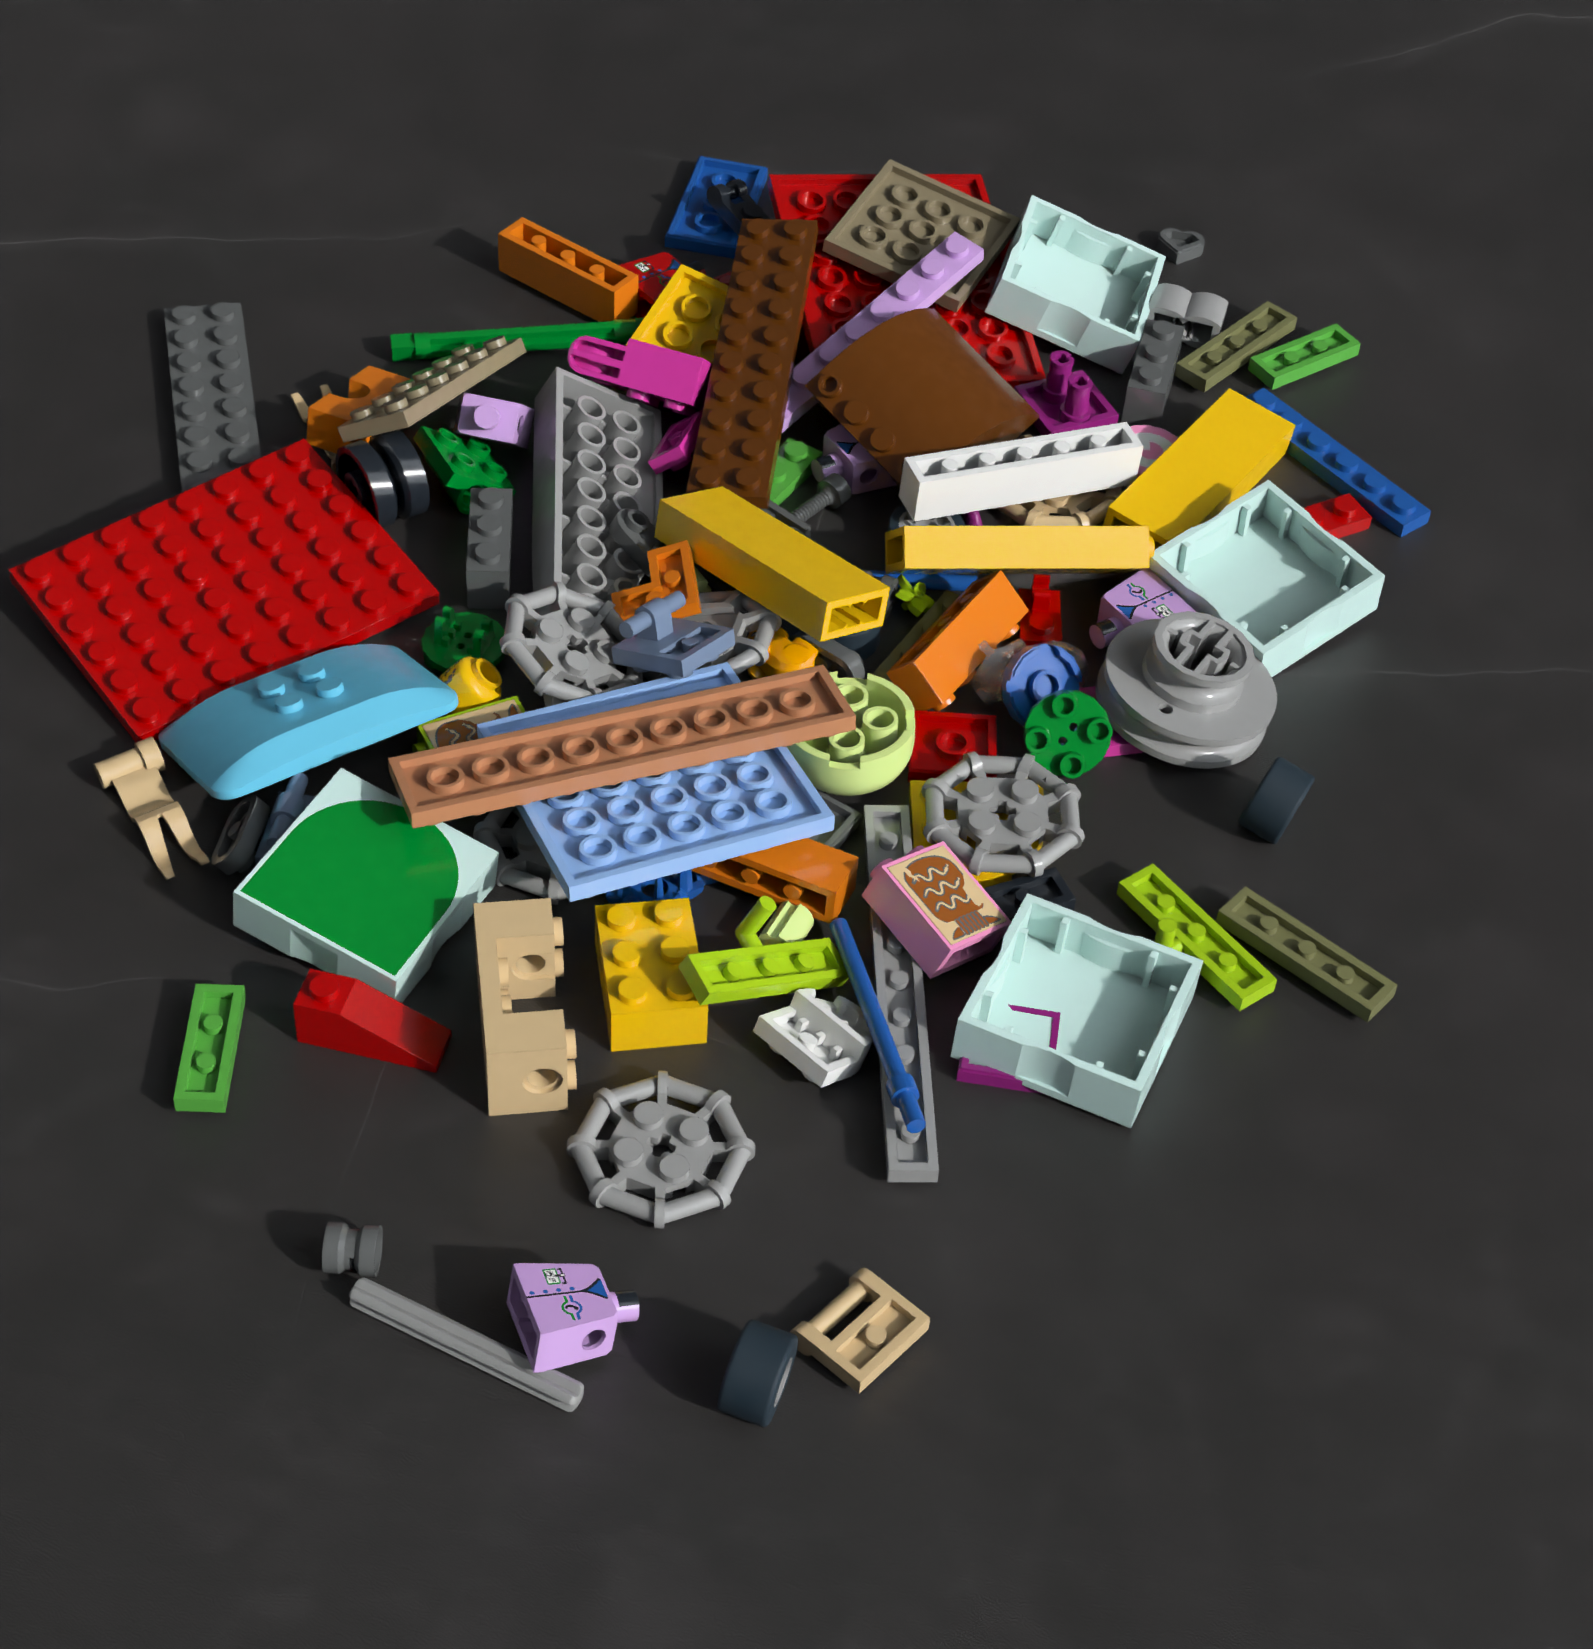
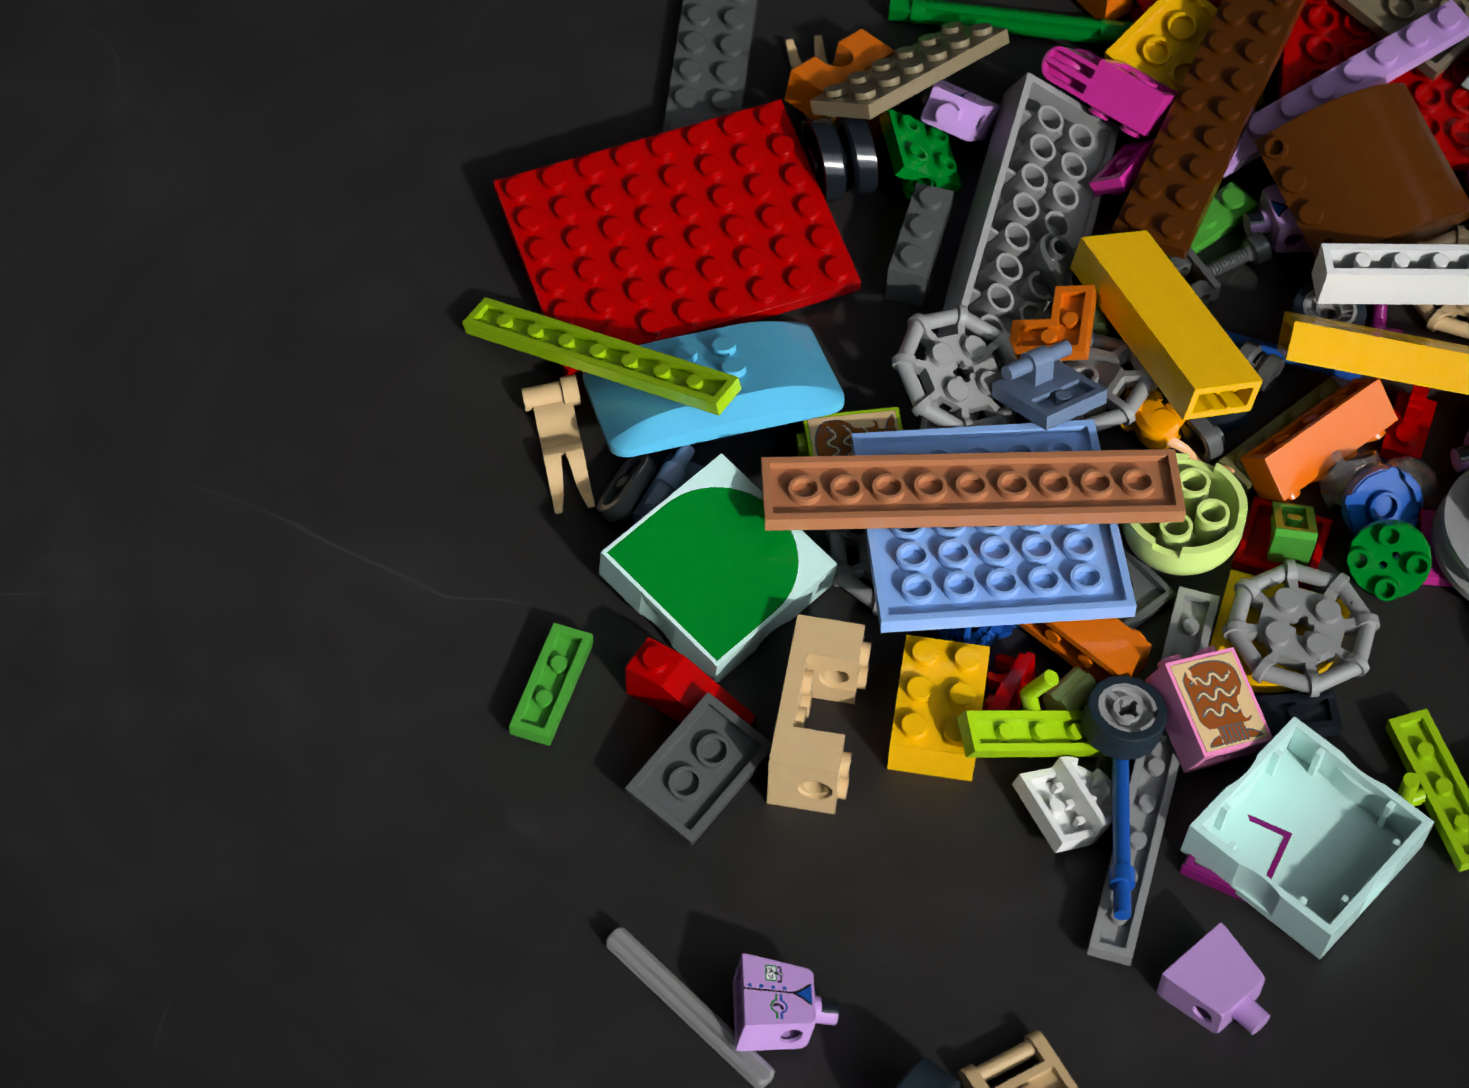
camera: 20 degrees right, 10 degrees up
(178, 705) = (603, 356): none -> lime plate
(352, 1249) = (619, 899): dark grey wheel -> none
(405, 1092) = (699, 768): none -> dark grey plate
(461, 636) = (858, 326): green plate -> none
(474, 681) = (863, 385): yellow head -> none
(655, 1125) = (906, 850): light grey plate -> none
(720, 925) = (1008, 685): none -> red plate
(852, 934) = (1126, 735): none -> black wheel
(914, 597) = (1296, 379): lime plant -> none
(963, 730) = (1292, 533): none -> bright green slope
(1035, 1175) = (1216, 984): none -> lavender torso

